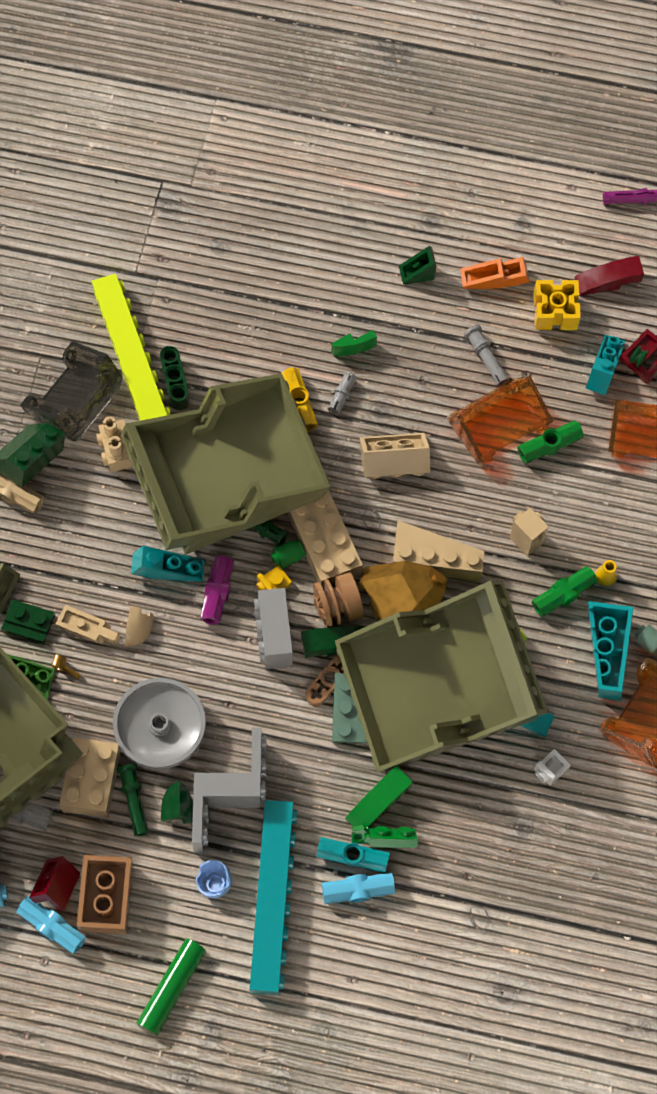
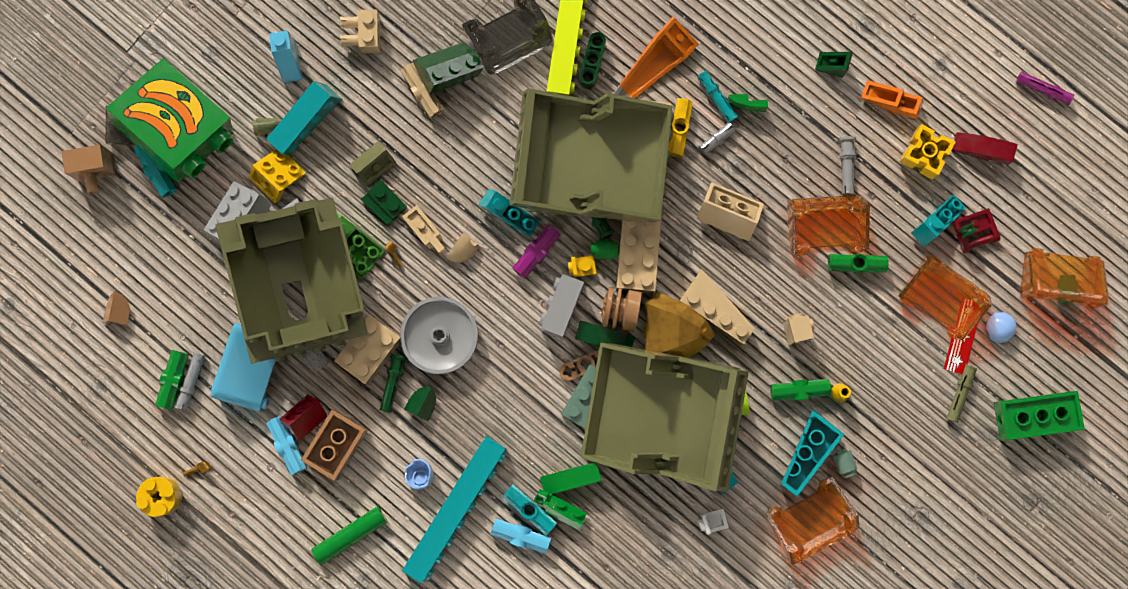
camera: 30 degrees right, 15 degrees up
(115, 451) = (517, 85): tan brick -> none
(228, 790) = (462, 414): light grey bracket -> none
(242, 339) = (662, 54): none -> orange plate
(311, 348) = (712, 89): none -> teal pin

